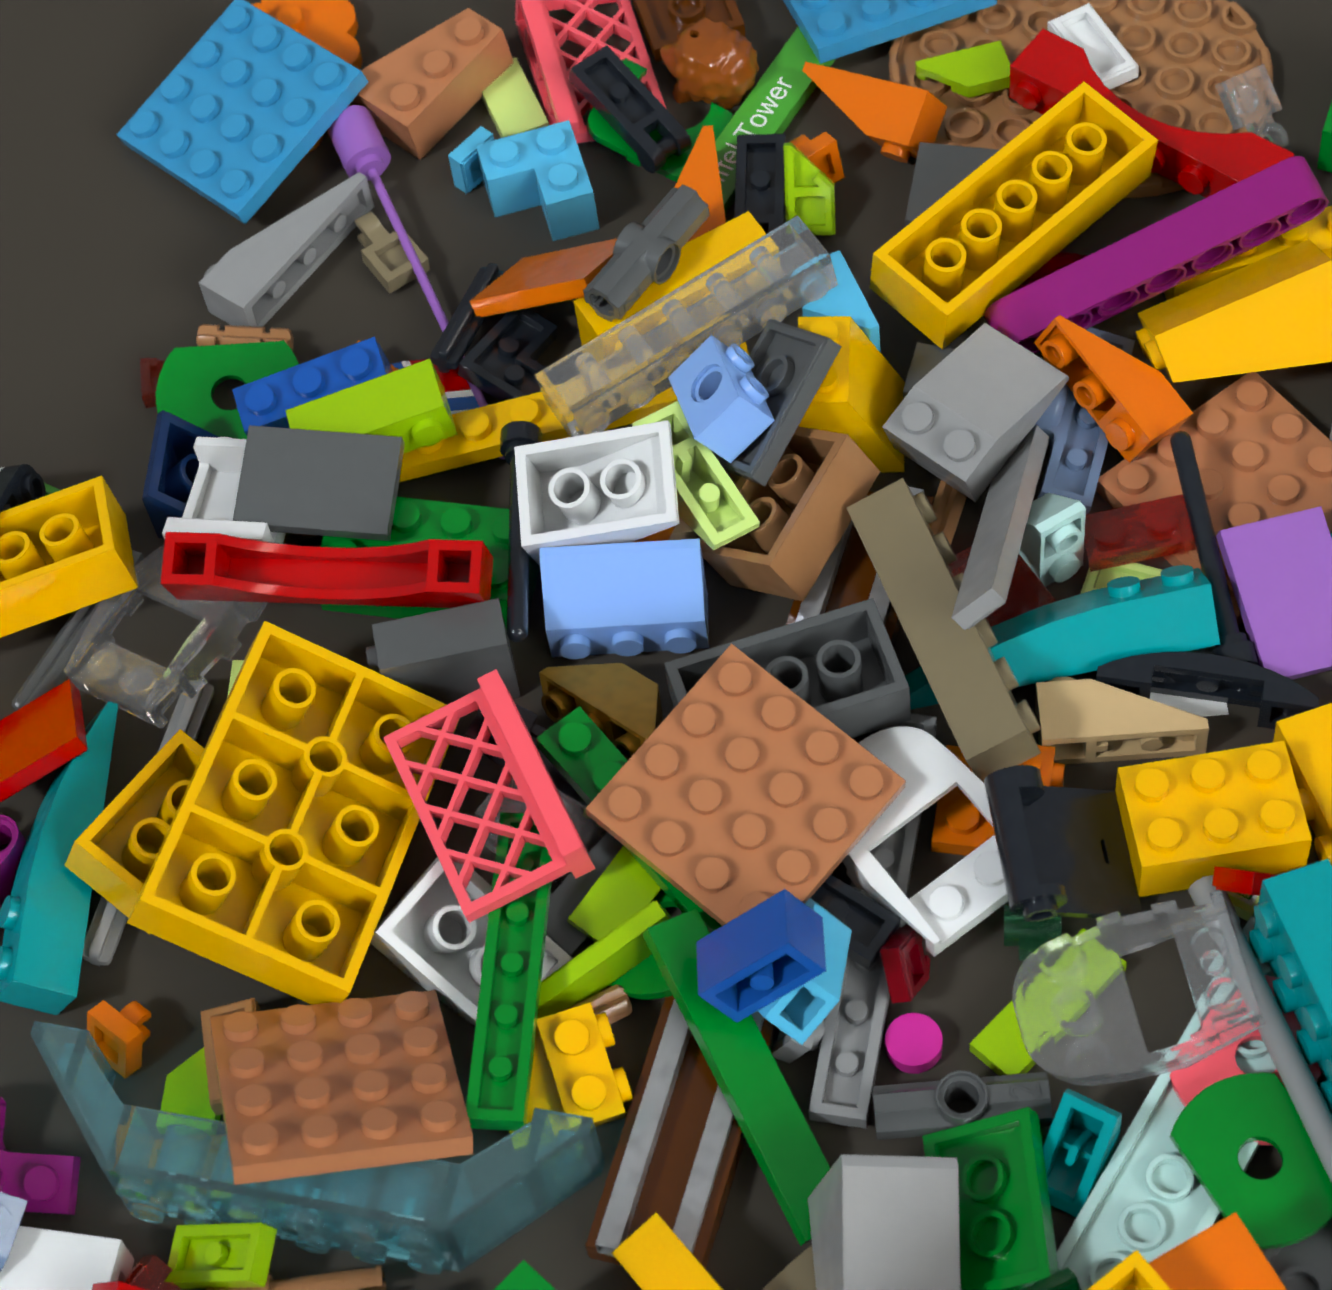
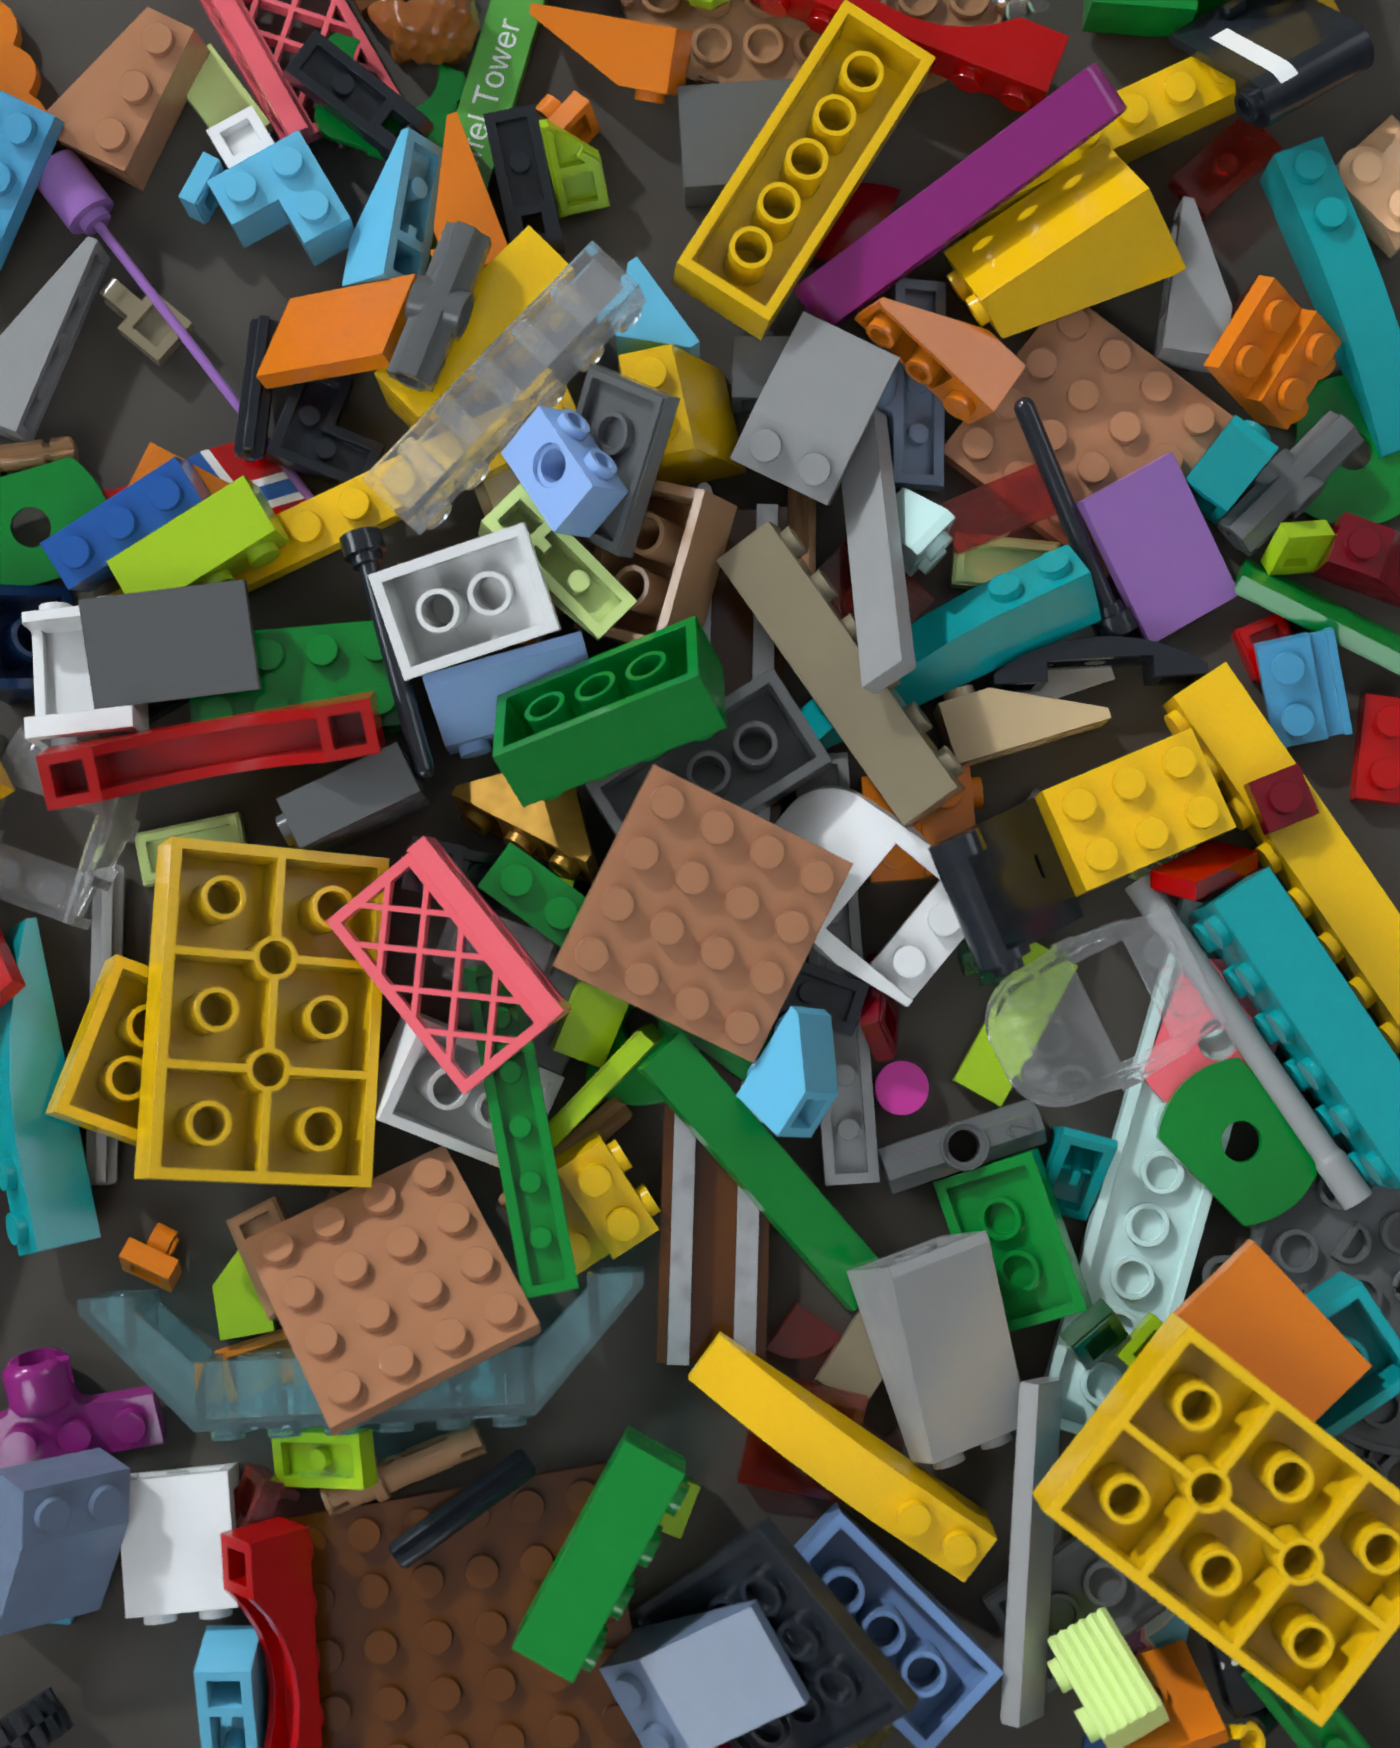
camera: 25 degrees left, 25 degrees up
(516, 120) = (239, 136): none -> white tile
(636, 191) = (399, 216): none -> medium azure slope
(704, 603) = (609, 712): none -> green brick
(745, 1261) = (802, 1335): none -> clear red tile
(760, 956) = (762, 1082): blue brick -> none

